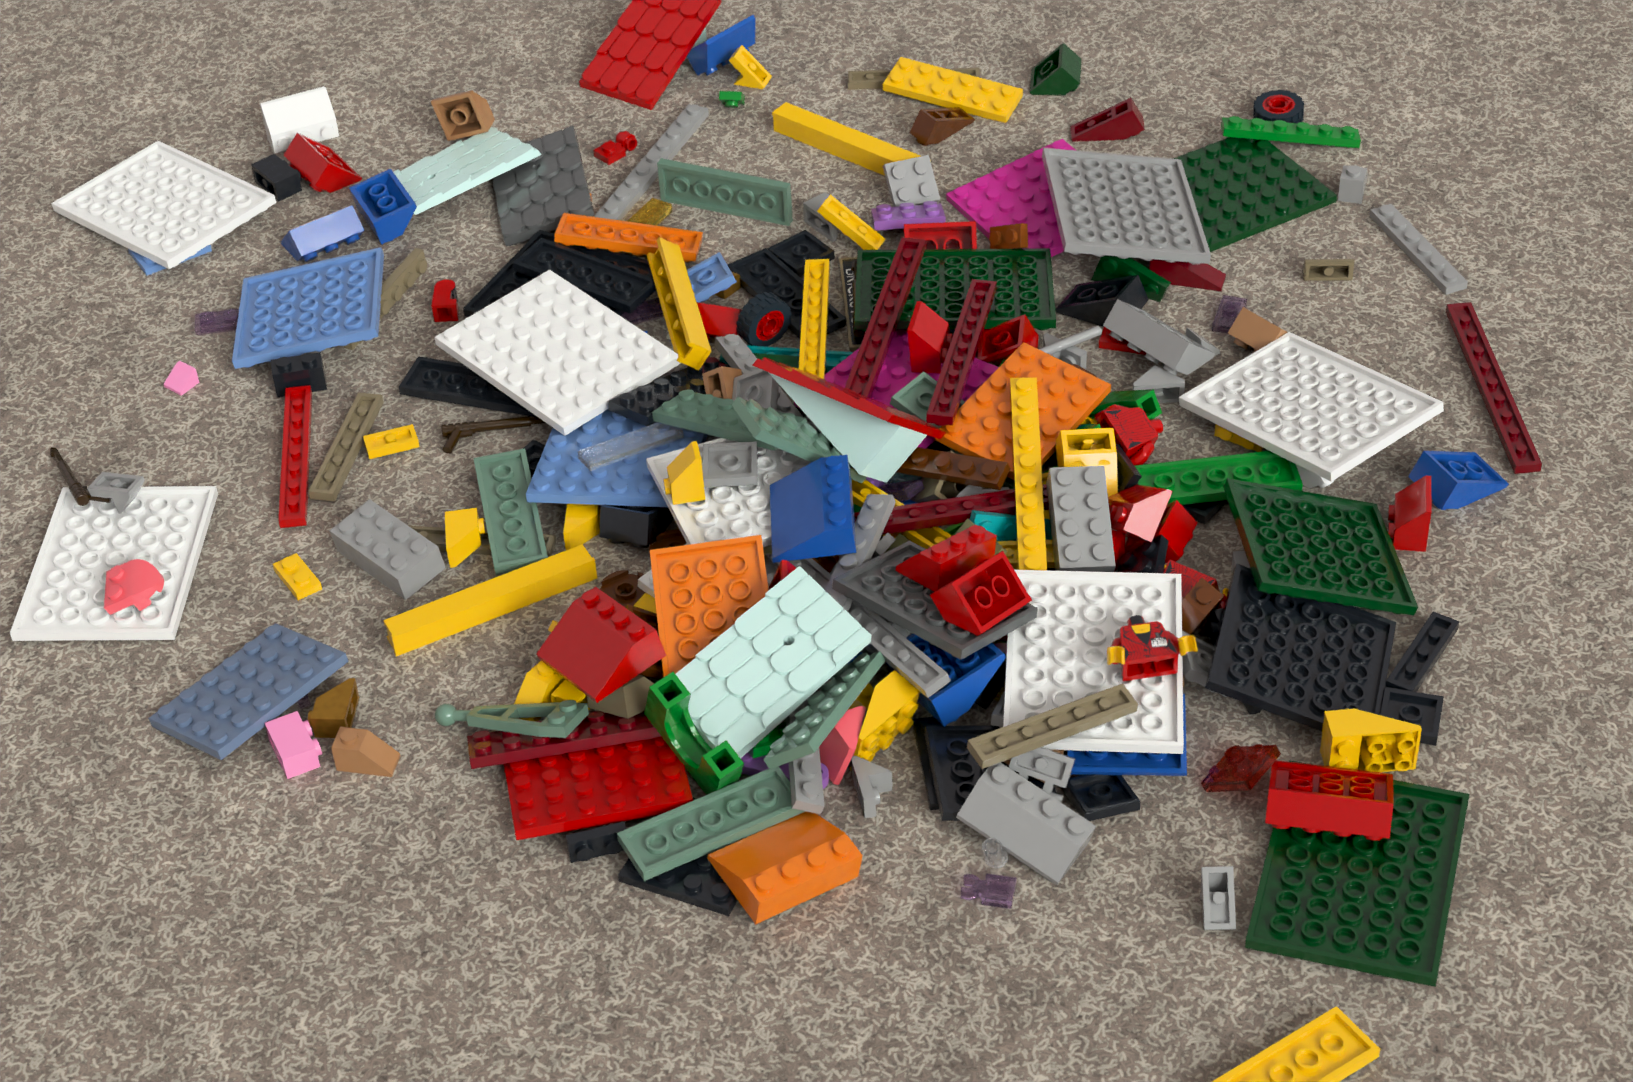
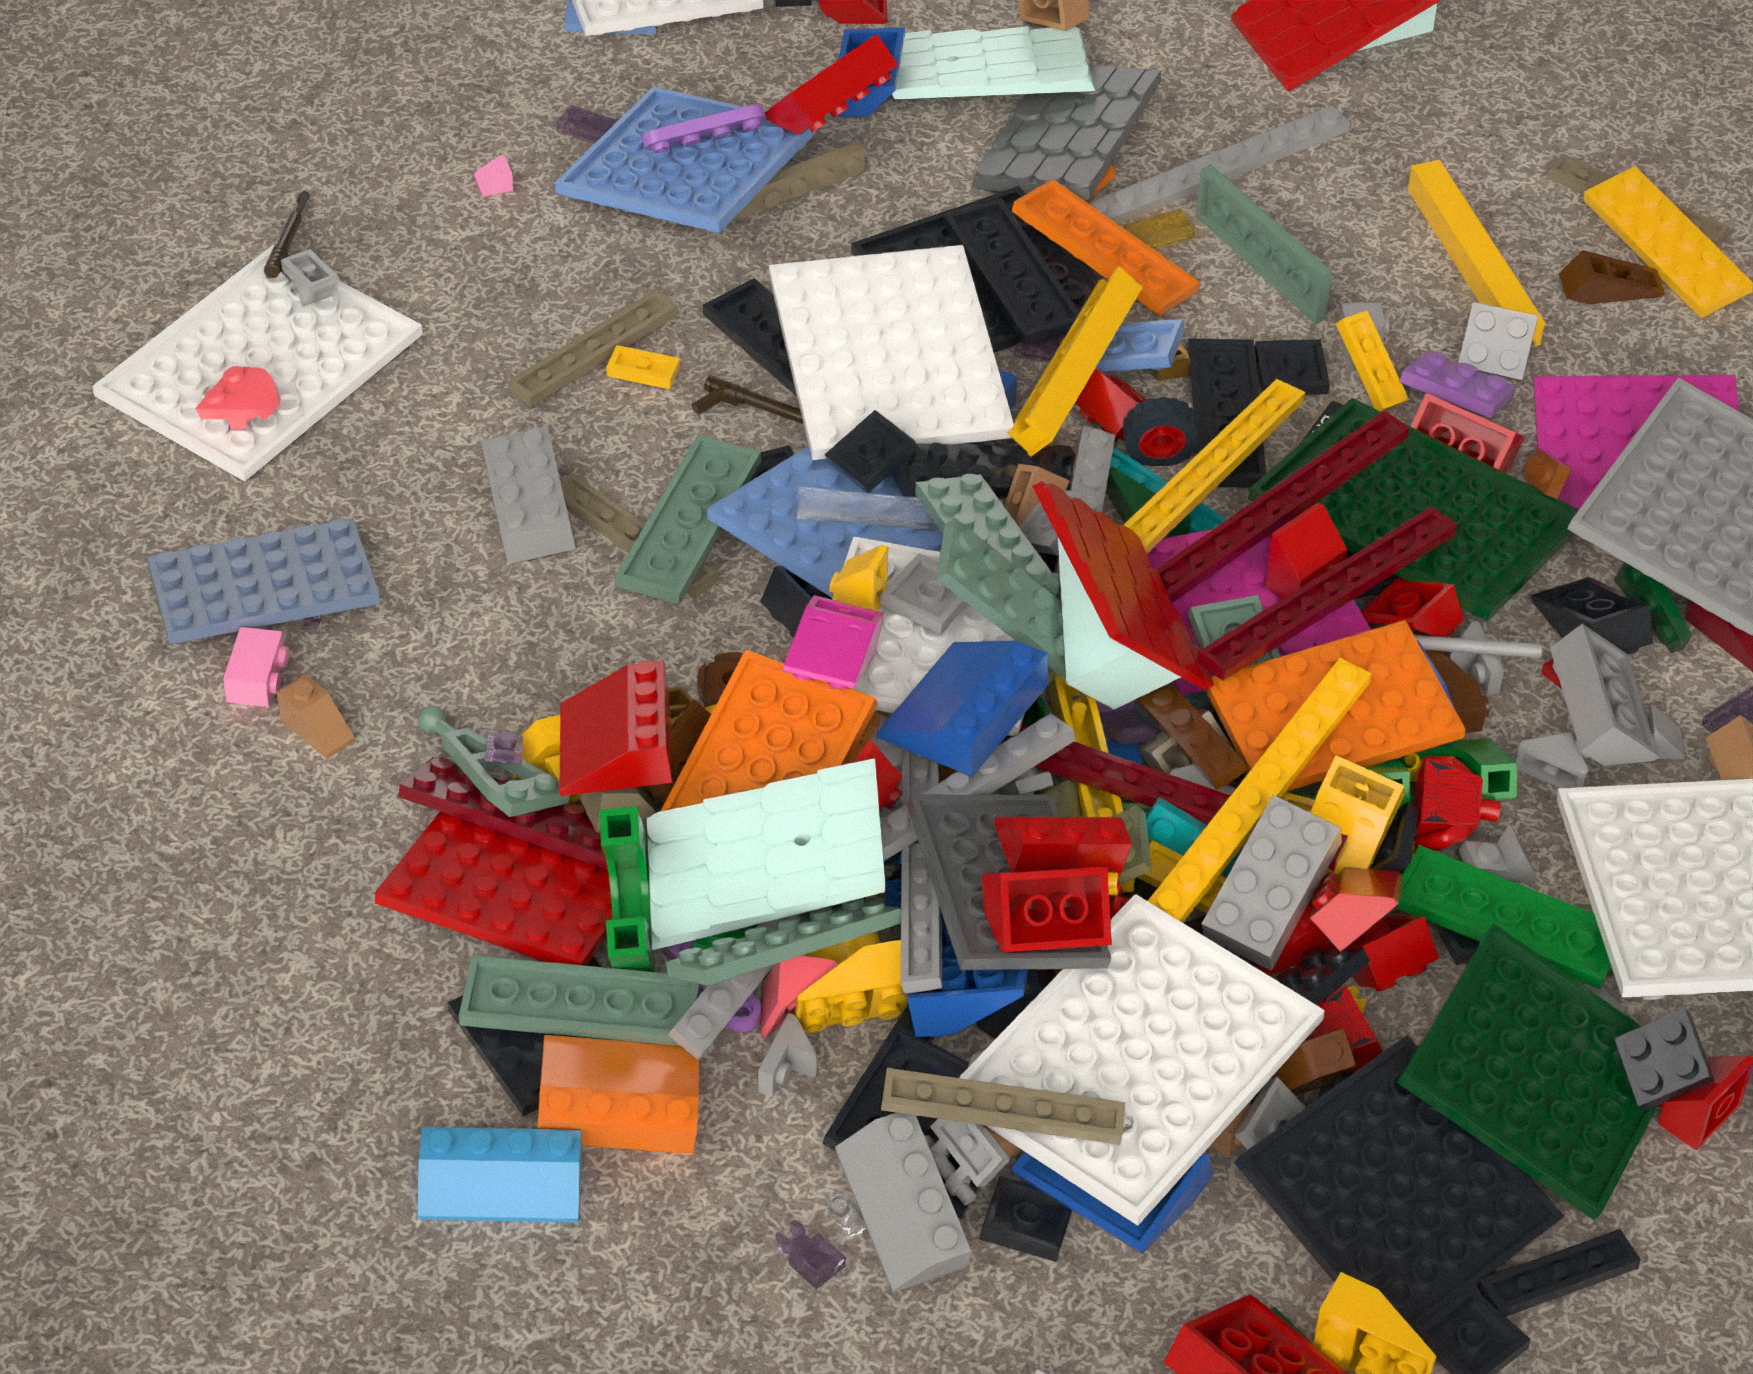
camera: 30 degrees right, 5 degrees up
(295, 457) = (531, 332): red plate -> none
(297, 576) = (420, 475): yellow plate -> none
(298, 371) = (612, 235): black brick -> none
(306, 285) = (692, 131): none -> medium lavender plate
(323, 234) = (774, 72): slope -> none
(334, 709) = (328, 651): pearl gold slope -> none
(380, 219) = (834, 87): none -> red slope
(445, 301) = (840, 223): red leg -> none
(463, 534) = (613, 520): yellow slope -> none
(490, 599) = (585, 612): yellow tile -> none
(518, 701) = (504, 747): none -> clear purple plate
(581, 524) = (745, 576): yellow slope -> none
(594, 842) = (449, 951): black plate -> none
(607, 407) = (871, 451): none -> black plate
(611, 152) = (1192, 125): red plate -> none
(706, 516) = (834, 642): none -> dark pink slope
(722, 46) = (1431, 49): blue slope -> none
(732, 98) = (1387, 124): green plate -> none
(751, 71) = (1441, 93): yellow slope -> none
(752, 955) = (499, 1174): none -> slope
(1147, 649) = (1185, 1076): torso -> none
(1181, 447) = (1504, 858): none -> light grey slope
(1240, 768) = (1206, 1281): clear red plate -> none
(1380, 504) = (1664, 1059): none -> plate

